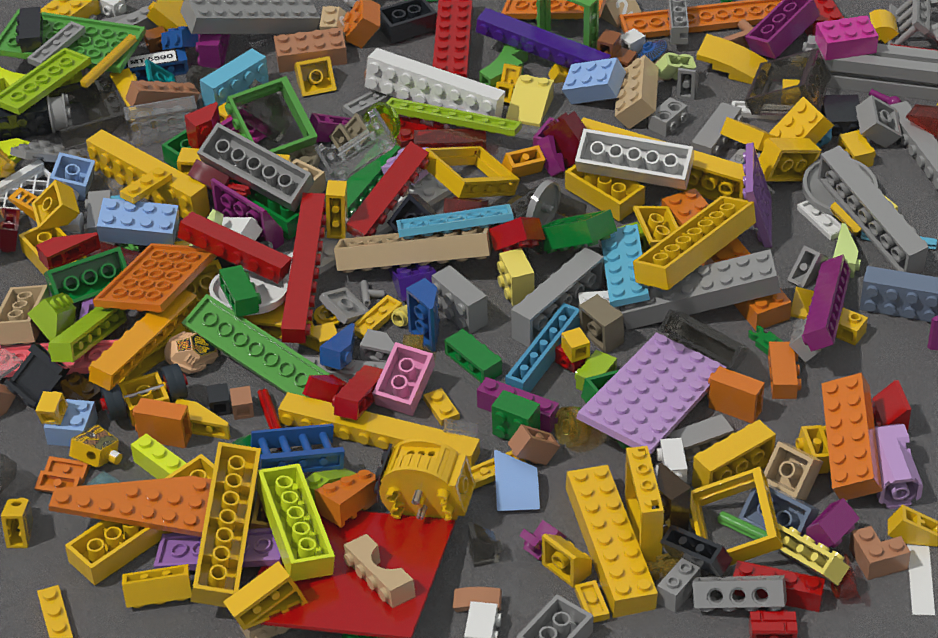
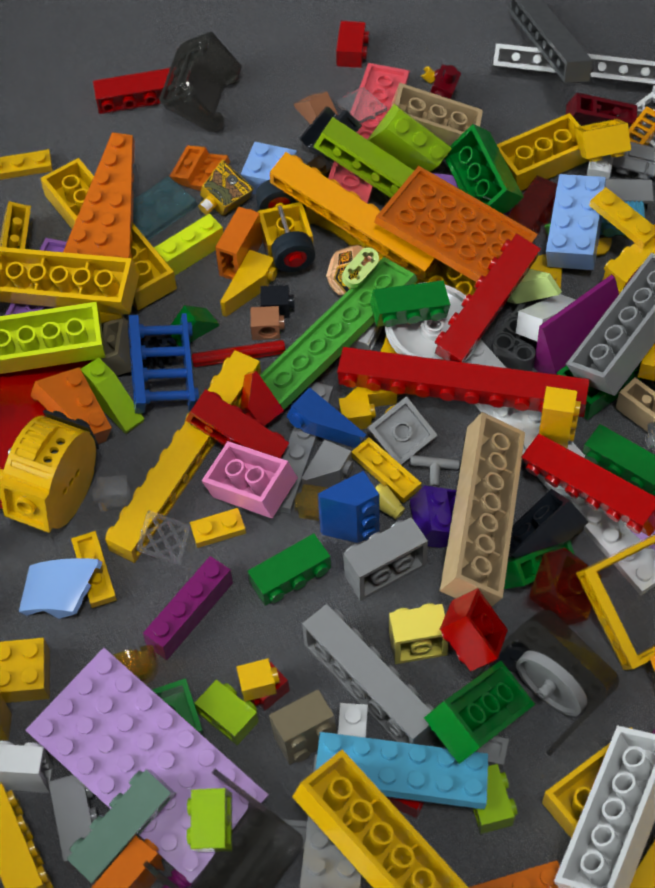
camera: 100 degrees right, 15 degrees up
(17, 514) = (140, 124): yellow torso -> none
(51, 407) = (267, 140): yellow brick -> none
(65, 249) = (520, 141): red slope -> none
(197, 330) = (364, 271): none -> yellowish green beam
(450, 221) = (506, 552): medium azure plate -> none
(510, 412) = (150, 592): green brick -> none
(533, 445) = (101, 608): nougat brick -> none
(541, 352) = (266, 642): dark azure brick -> none
(655, 222) = (487, 839): yellow slope -> none
(687, 344) = (210, 820): none -> lime brick
(705, 388) = (126, 819): none -> sand green brick

